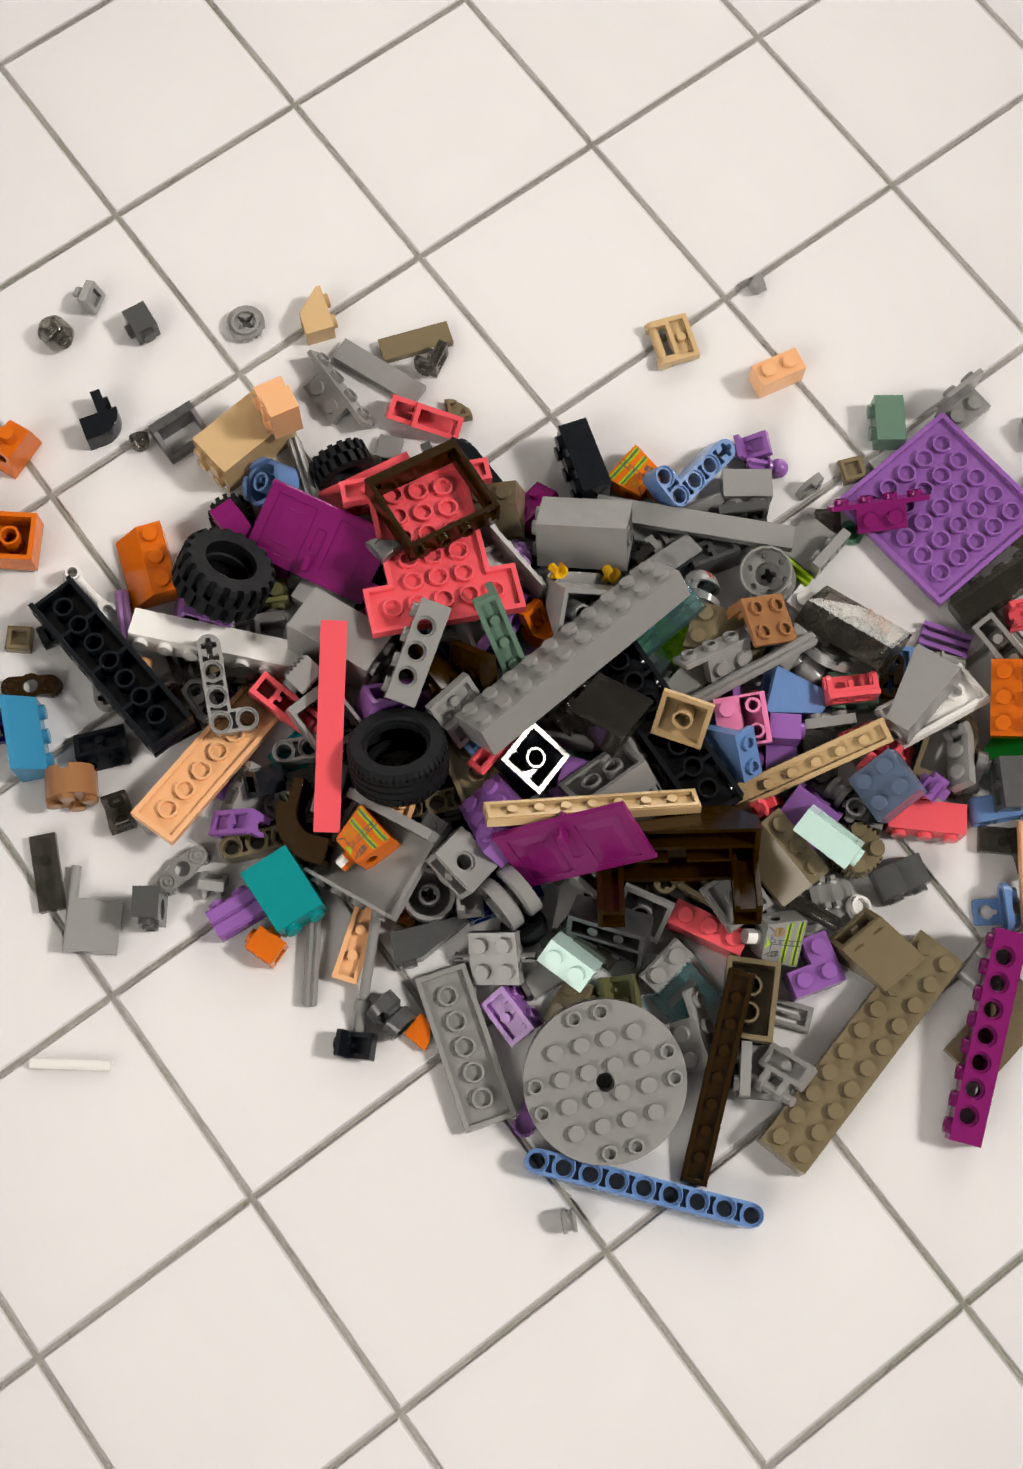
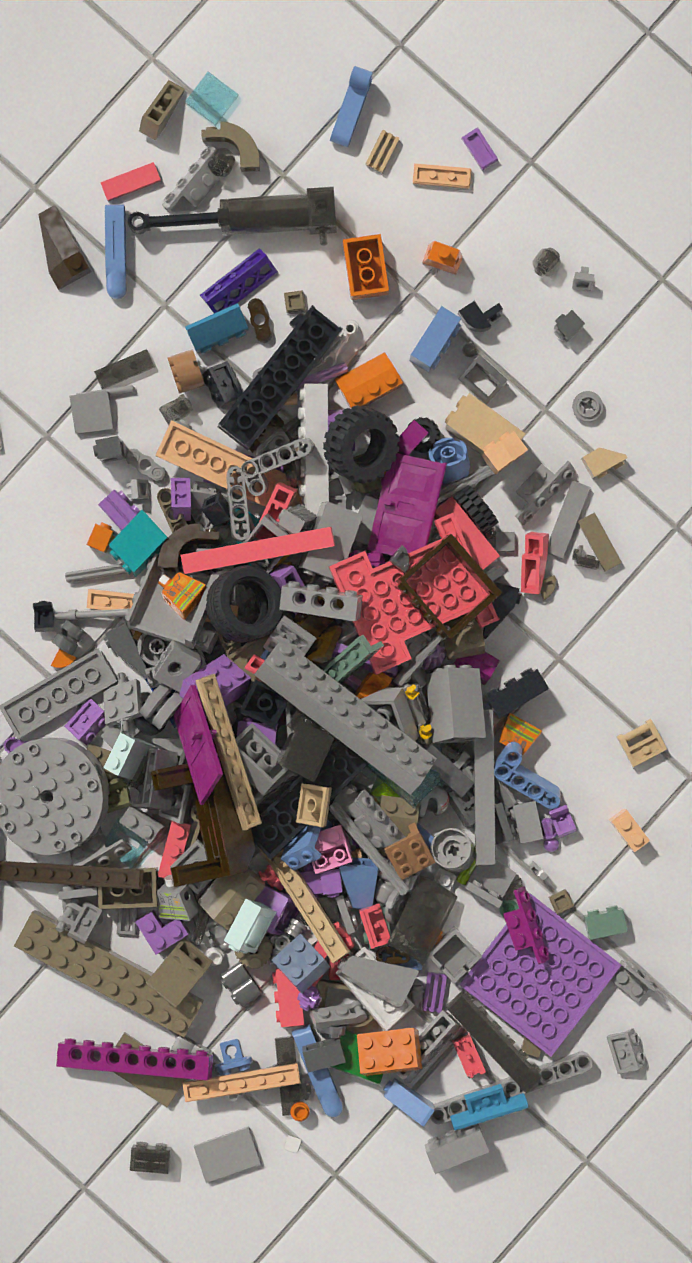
camera: 80 degrees right, 15 degrees up
(115, 473) = (436, 339): none -> medium blue brick
(262, 753) = (235, 504): none -> light grey beam
(897, 602) = (454, 953): none -> light grey piece

